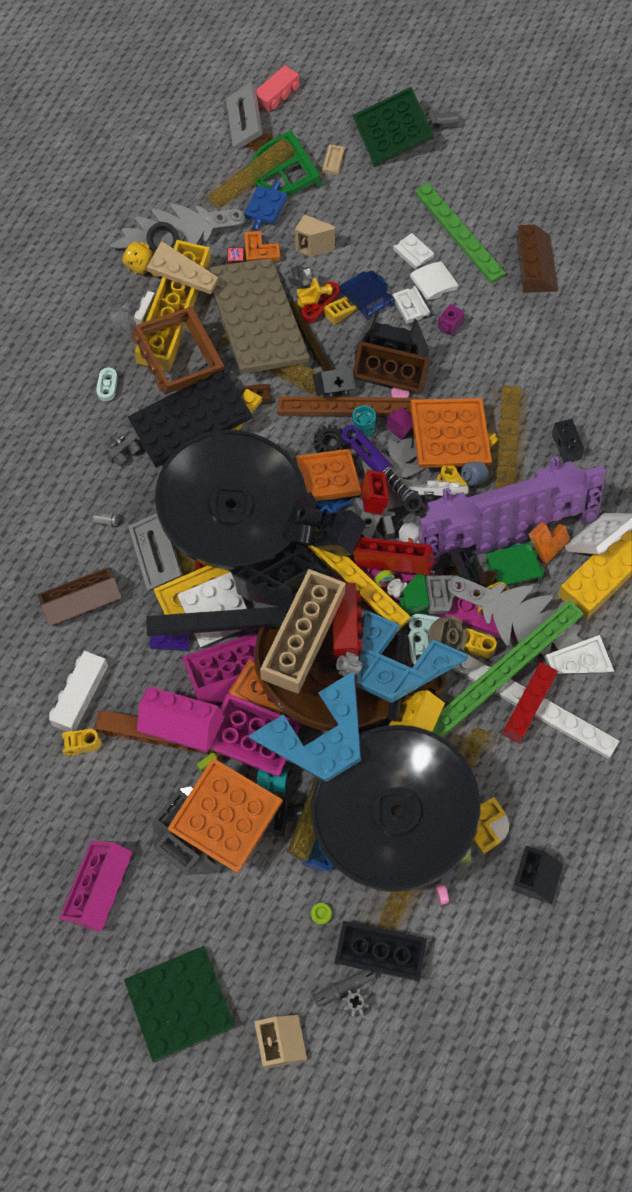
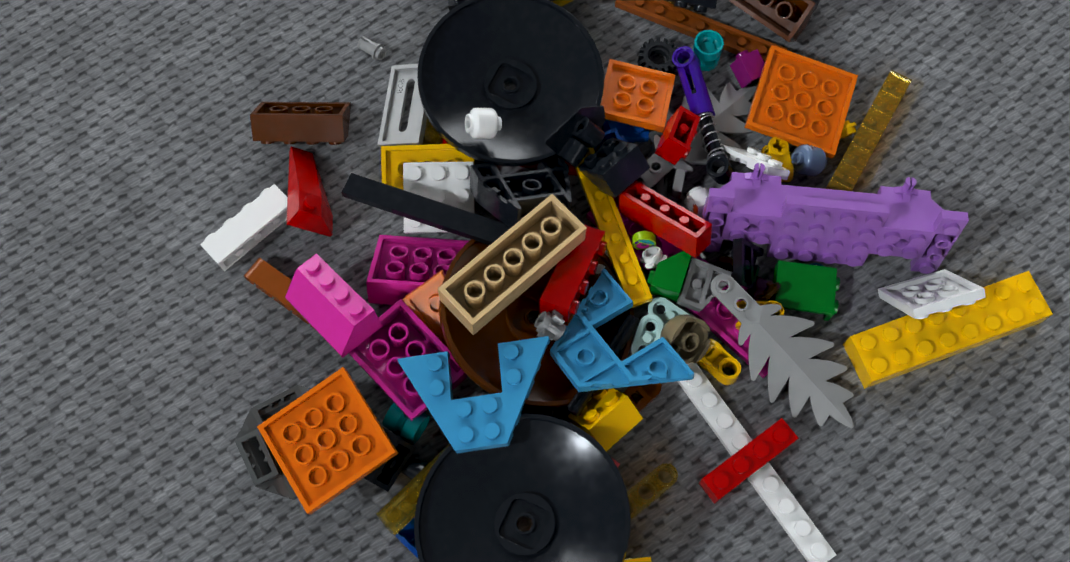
camera: 25 degrees right, 5 degrees up
(76, 742) = (220, 283): yellow piece -> none
(96, 885) = (160, 454): dark pink slope -> none
(113, 650) = (307, 199): none -> red wedge
(175, 642) = (377, 216): dark purple plate -> none
(203, 763) = (350, 365): lime tile -> none
(229, 539) = (483, 123): none -> white head
(399, 393) = (765, 33): bright pink tile -> none
(506, 668) = (738, 407): bright green plate -> none
(548, 543) = (858, 279): orange plate -> none
(567, 441) = (939, 166): black brick -> none
(582, 657) = (835, 432): white wing -> none

